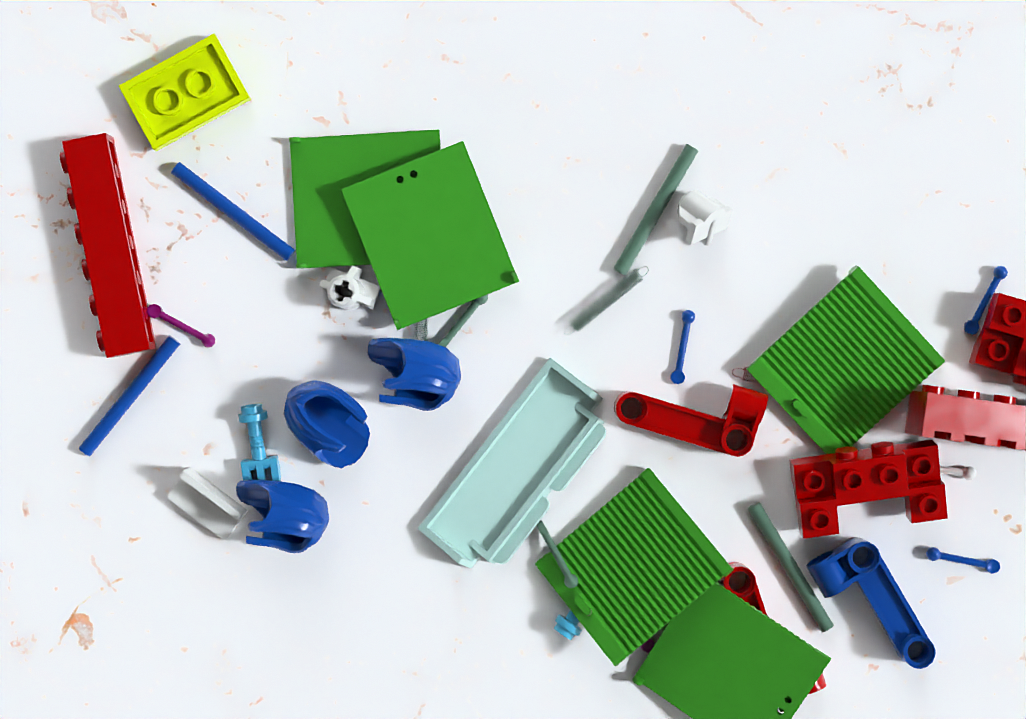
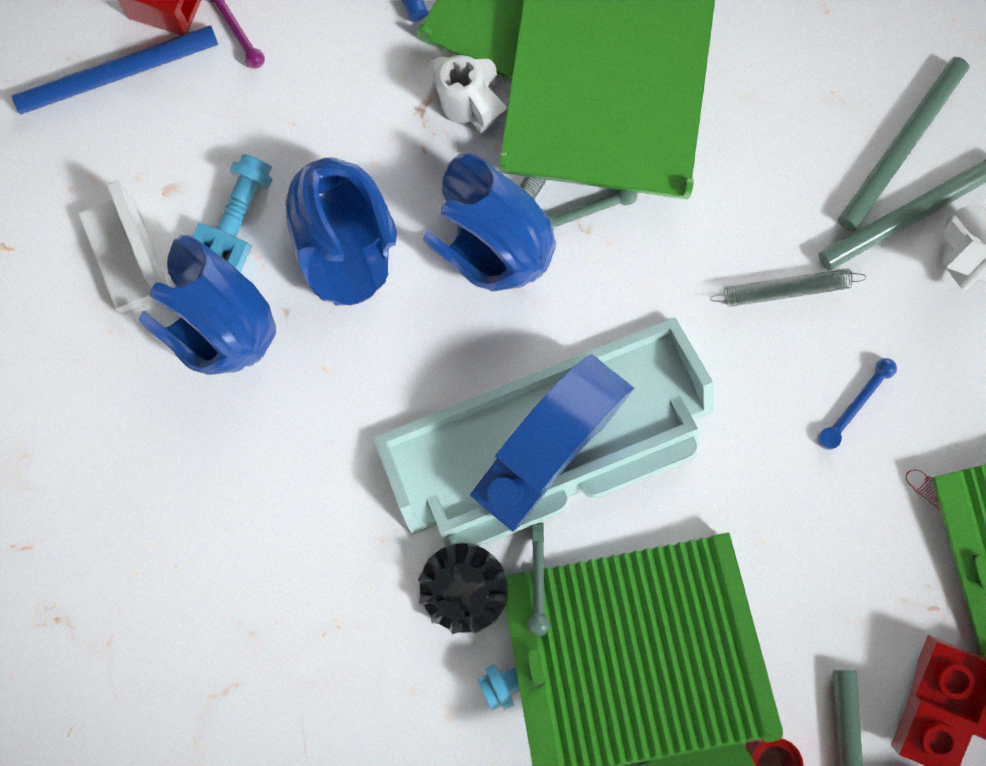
camera: 30 degrees right, 10 degrees down
(518, 568) = (475, 566): none -> black gear
(520, 475) = (550, 440): none -> blue arch
(628, 169) = (903, 143): none -> sand green bar
(698, 428) = (824, 514): red piece -> none

